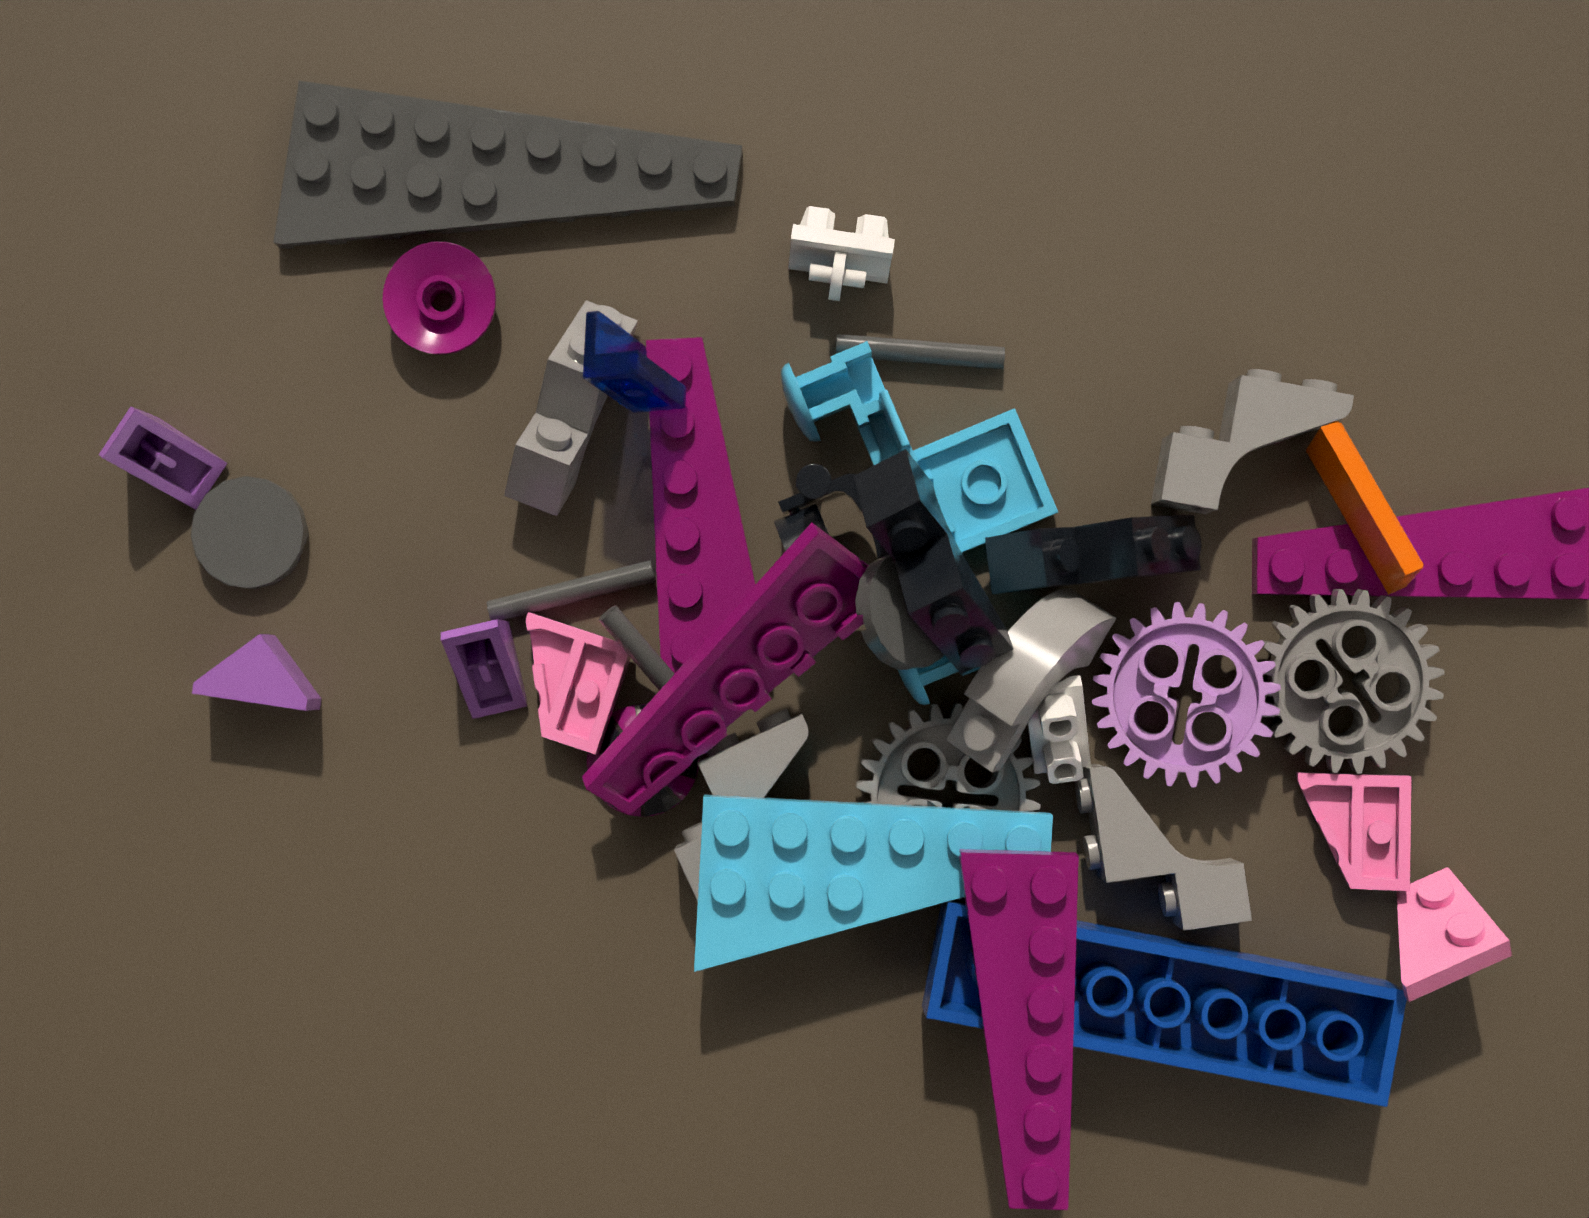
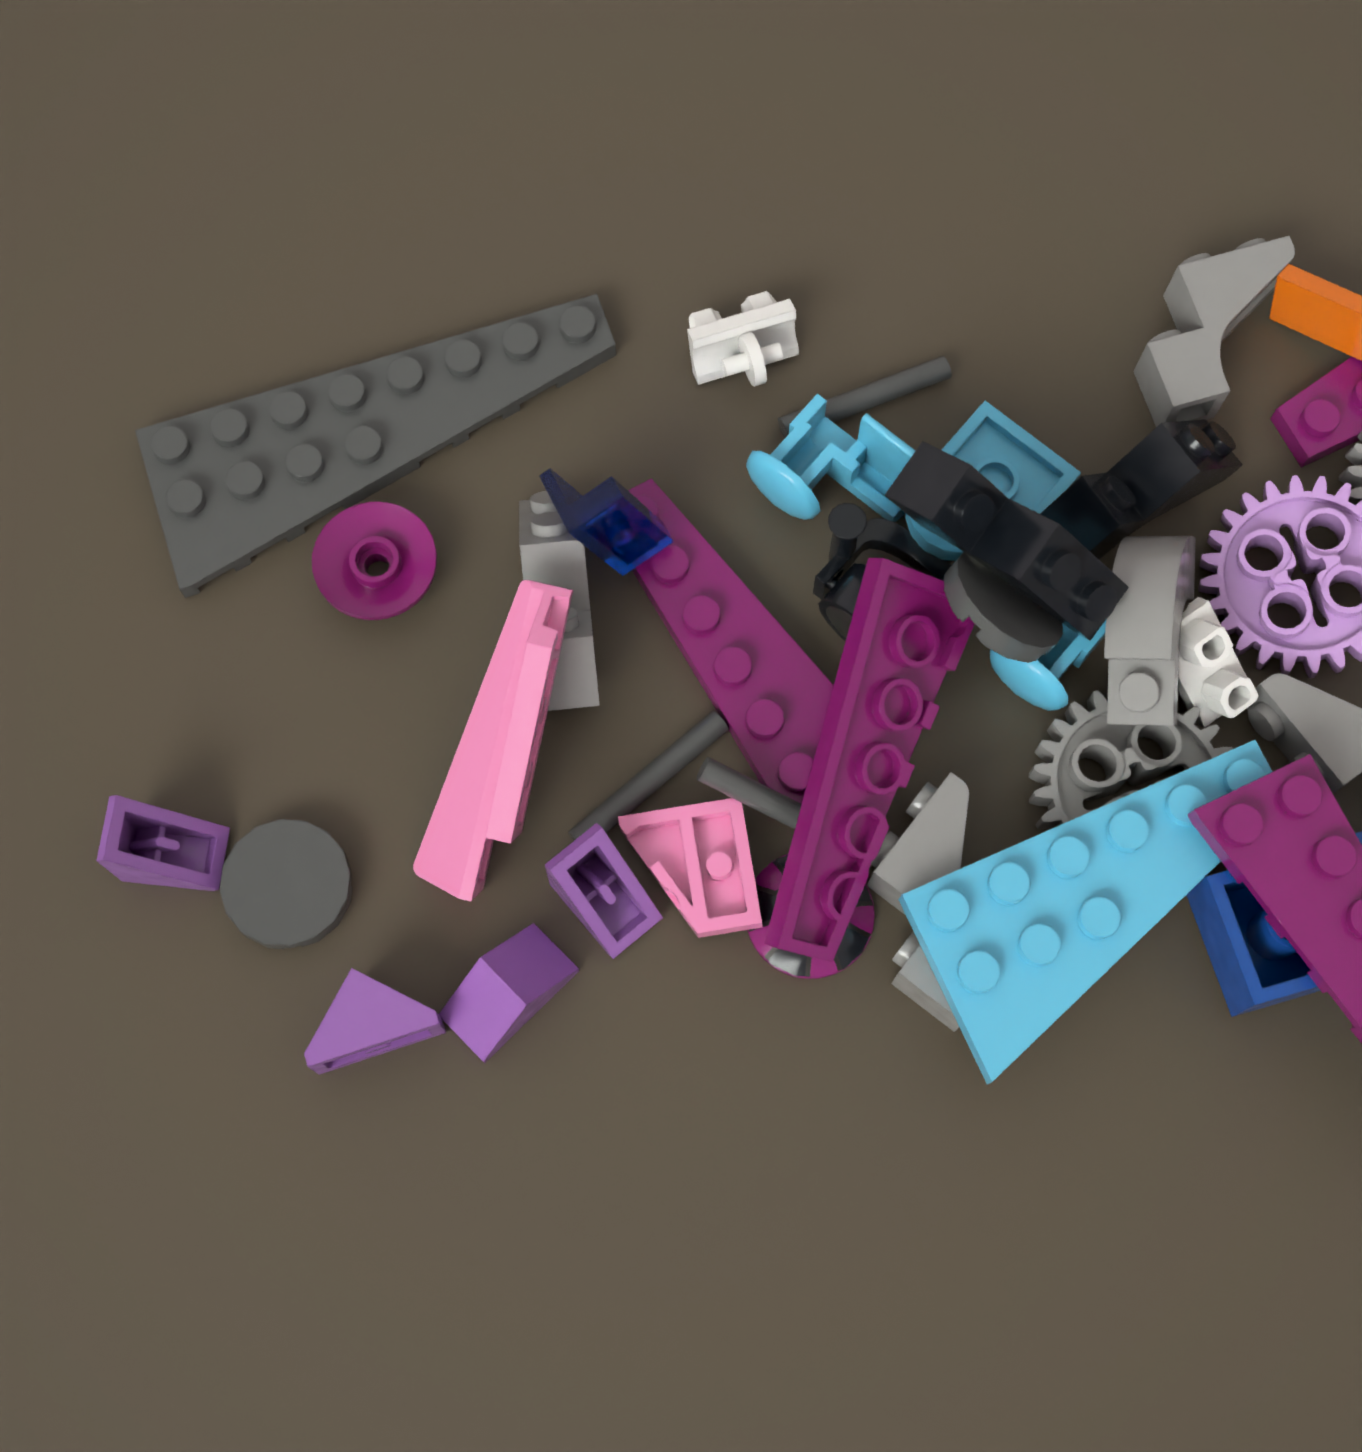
camera: 25 degrees left, 15 degrees down
(380, 703) = (506, 990): none -> medium lavender slope
(453, 519) = (499, 748): none -> bright pink wedge

